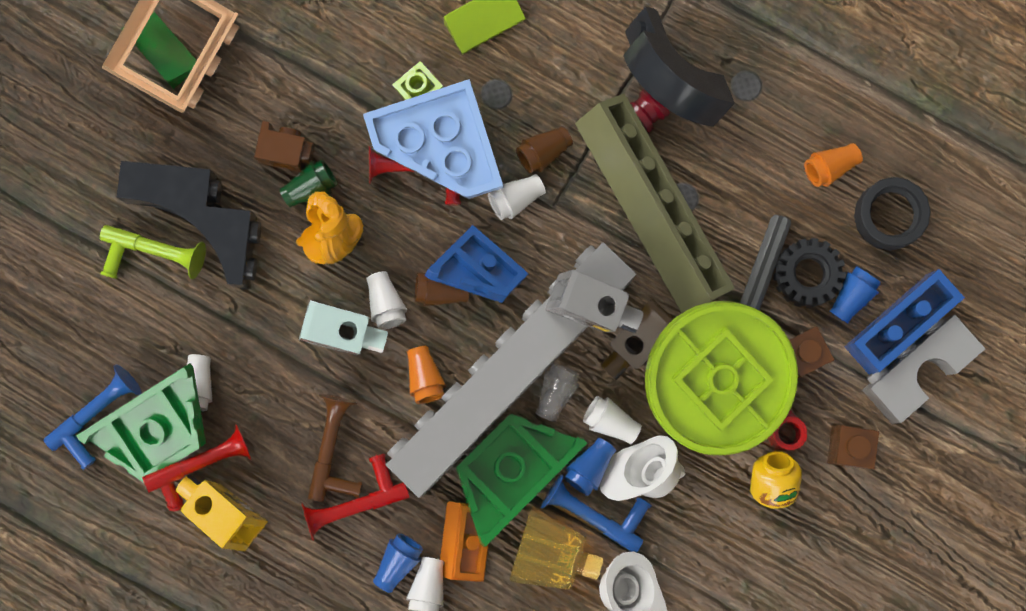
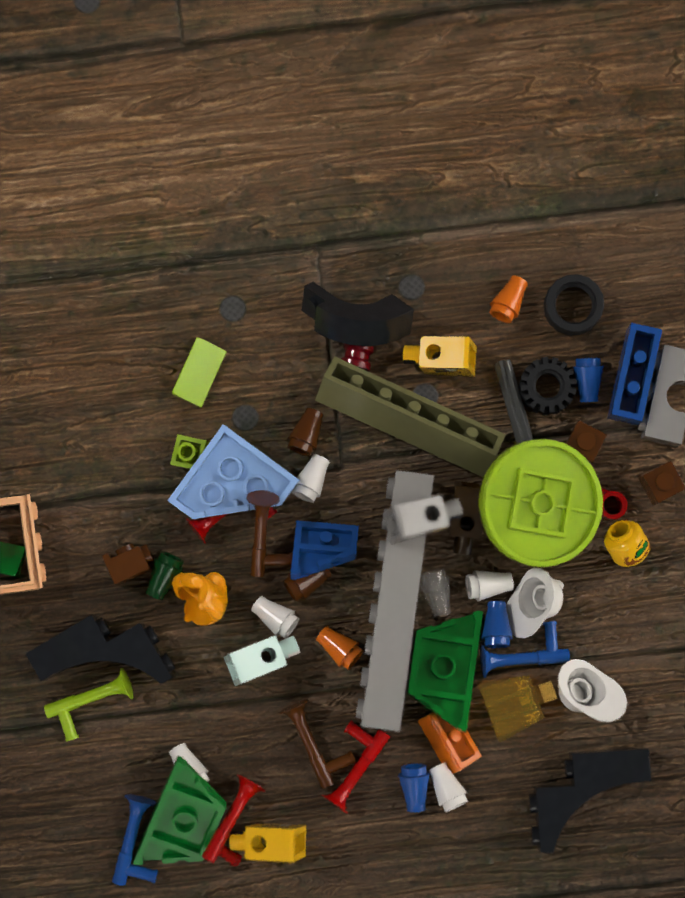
camera: 30 degrees left, 0 degrees up
(450, 181) = (262, 503): none -> reddish brown piece
(730, 170) = (456, 355): none -> yellow torso

